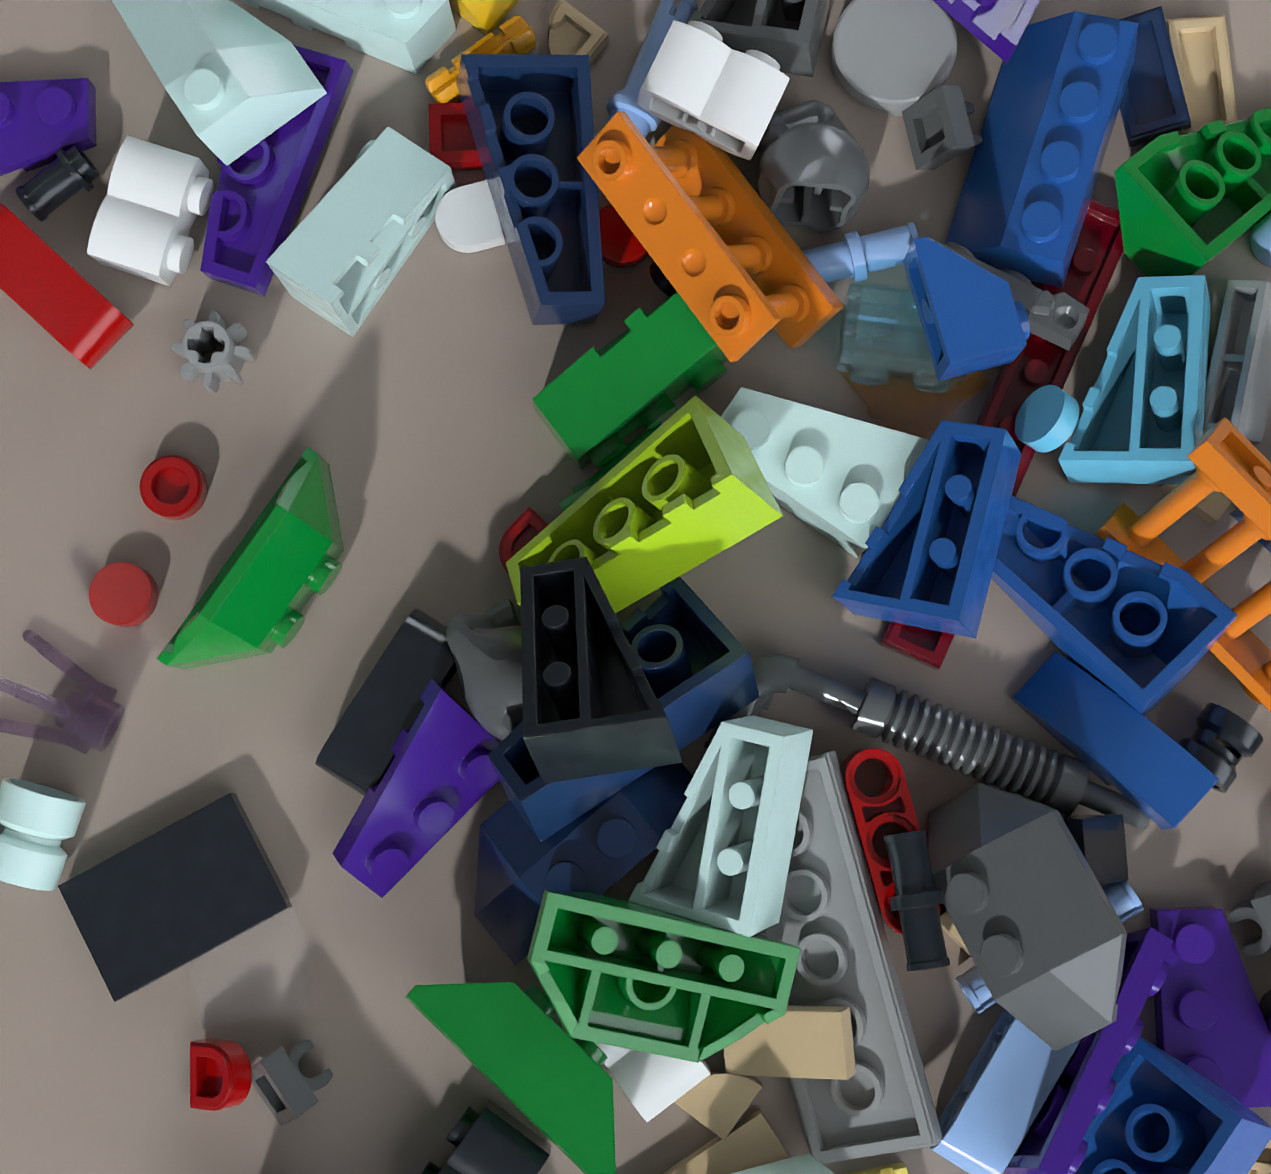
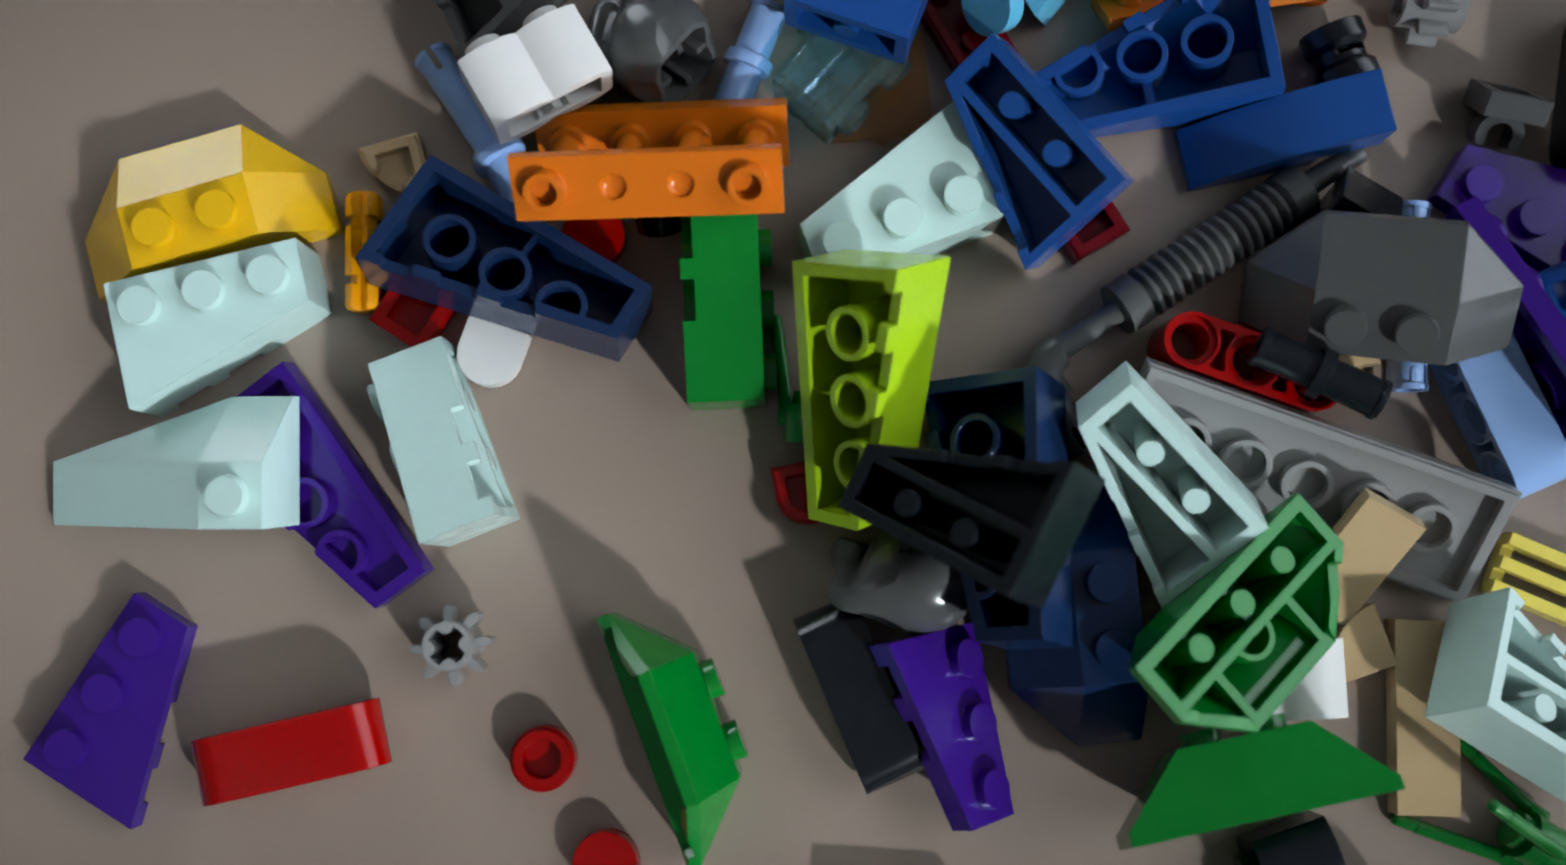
camera: 60 degrees left, 0 degrees up
(58, 182) = (207, 680): black pin -> none
(150, 211) = (292, 616): white brick -> none

